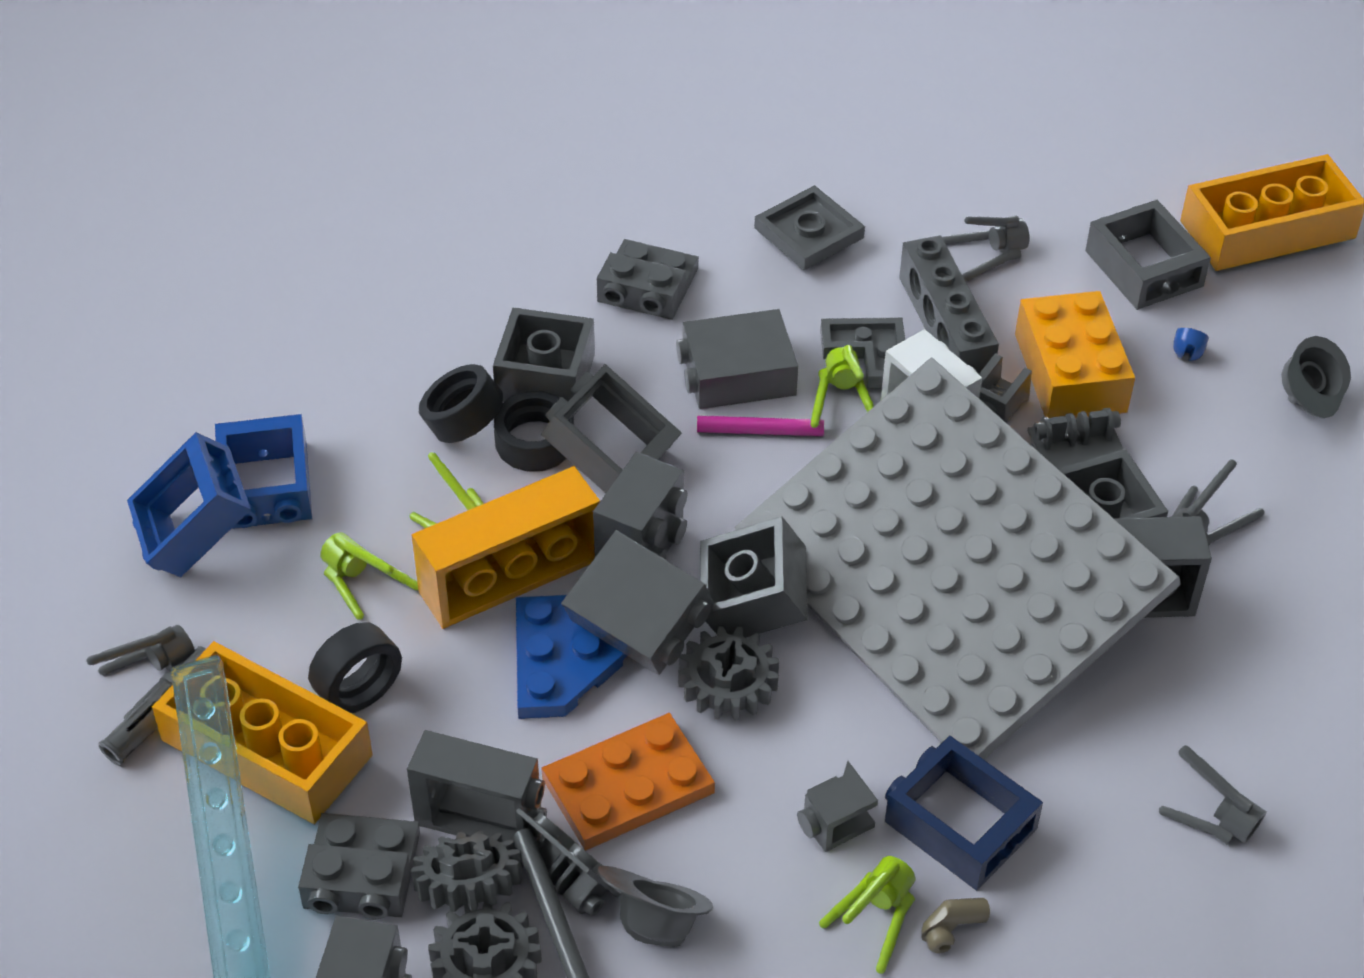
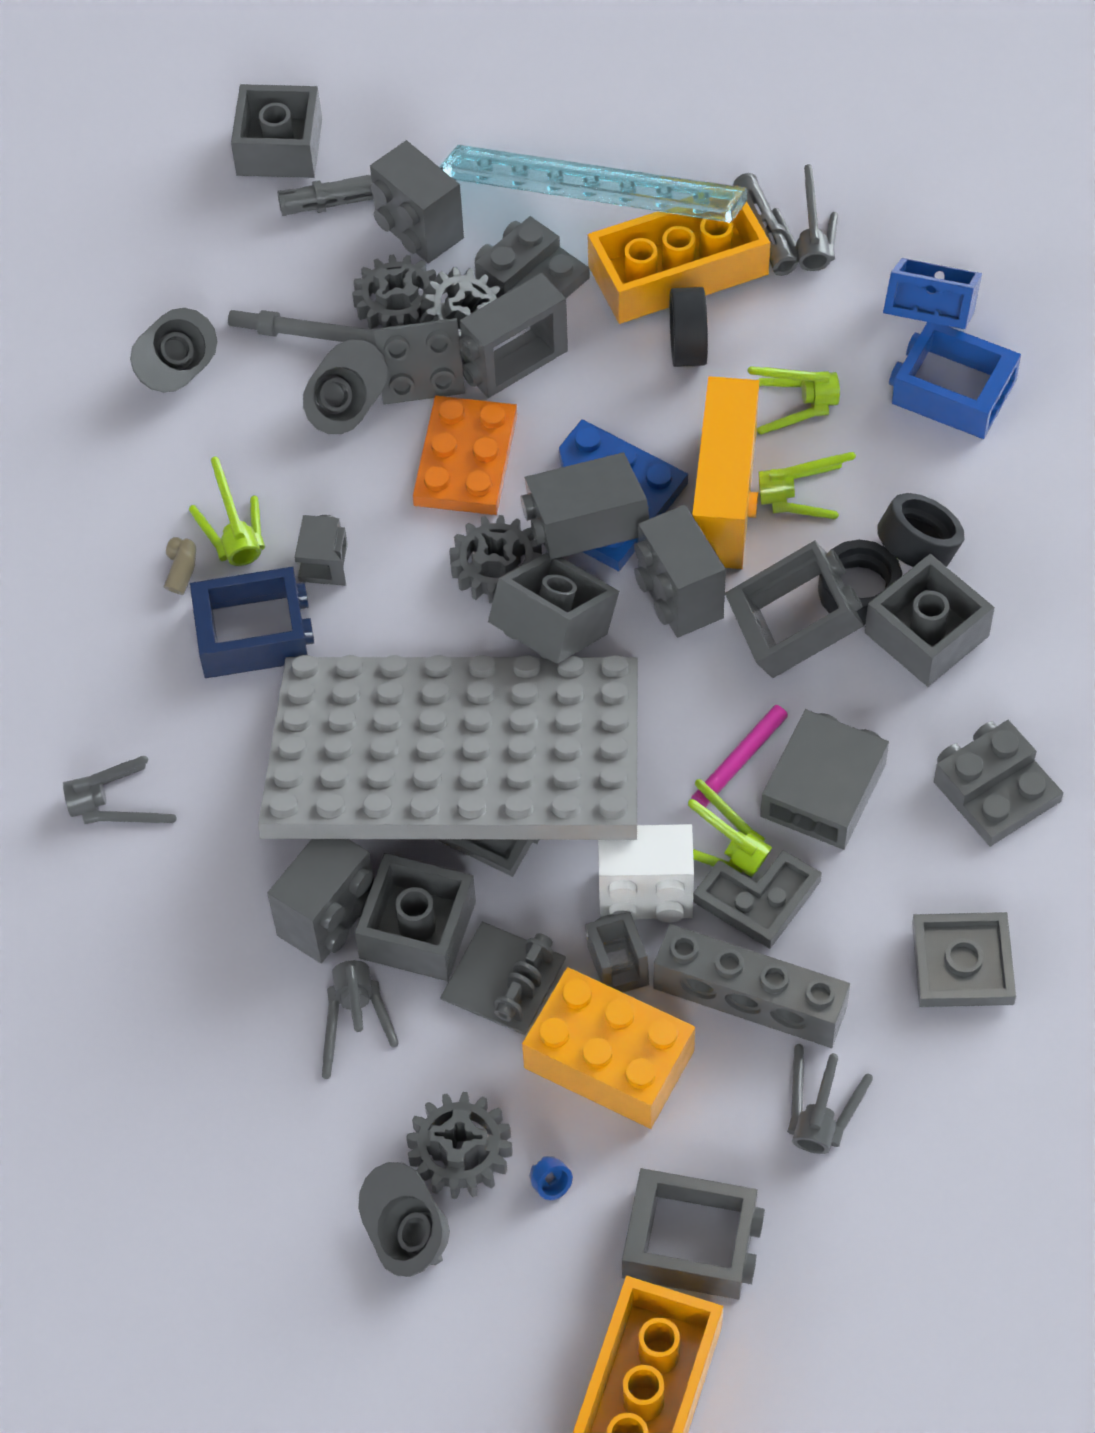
camera: 130 degrees right, 10 degrees up
(1227, 395) = (442, 1132): none -> dark grey gear

